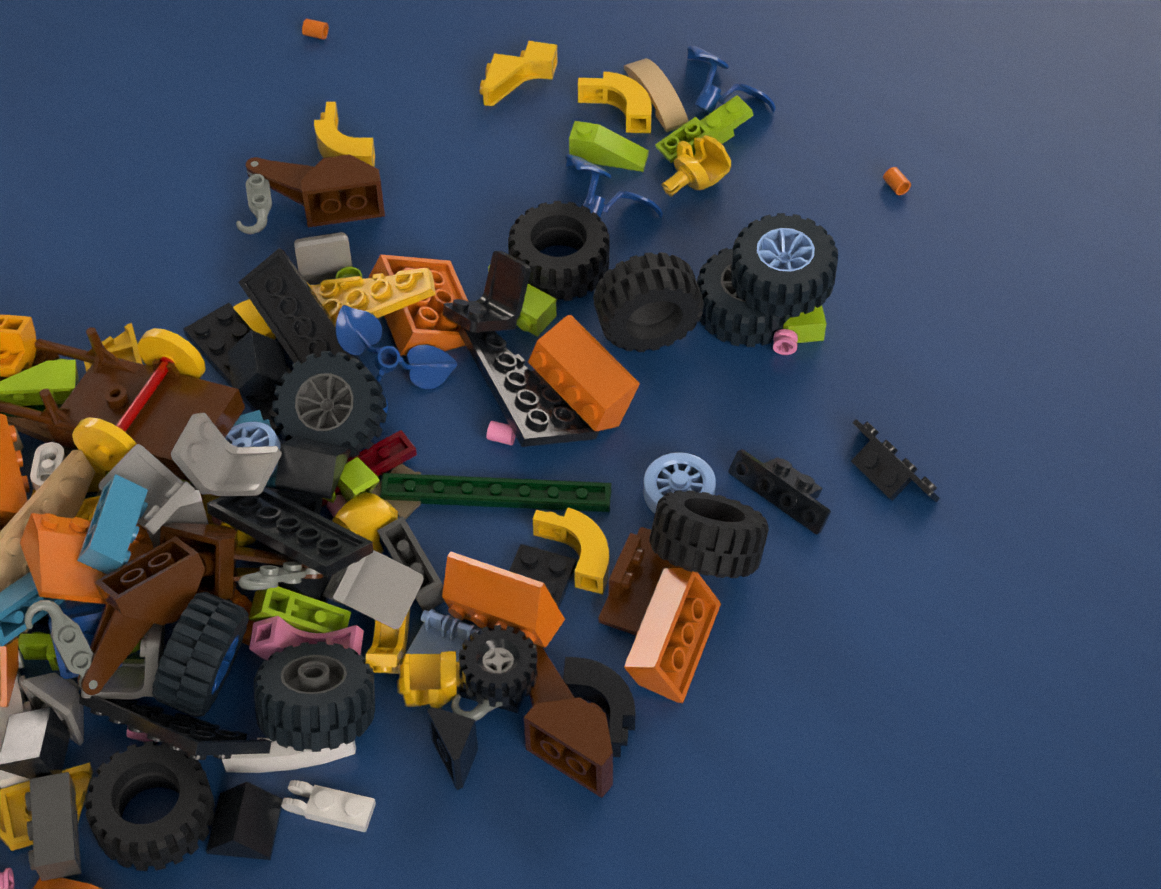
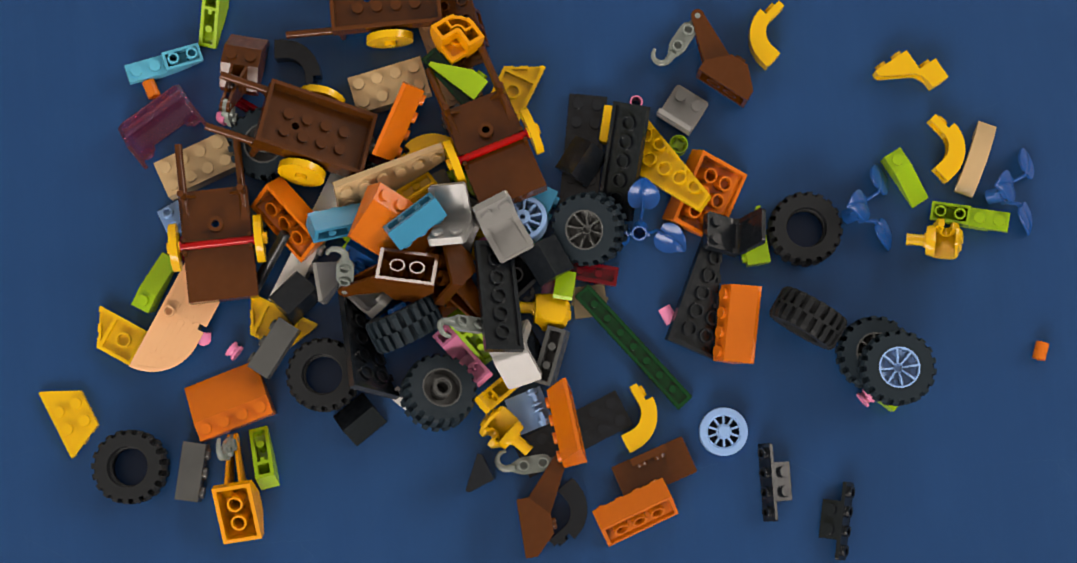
camera: 50 degrees right, 30 degrees up
(45, 461) = (423, 137): white plate -> none
(330, 806) = (405, 447): white hinge -> none
(501, 650) = (538, 452): black wheel -> none
(708, 534) = (682, 492): black tyre -> none

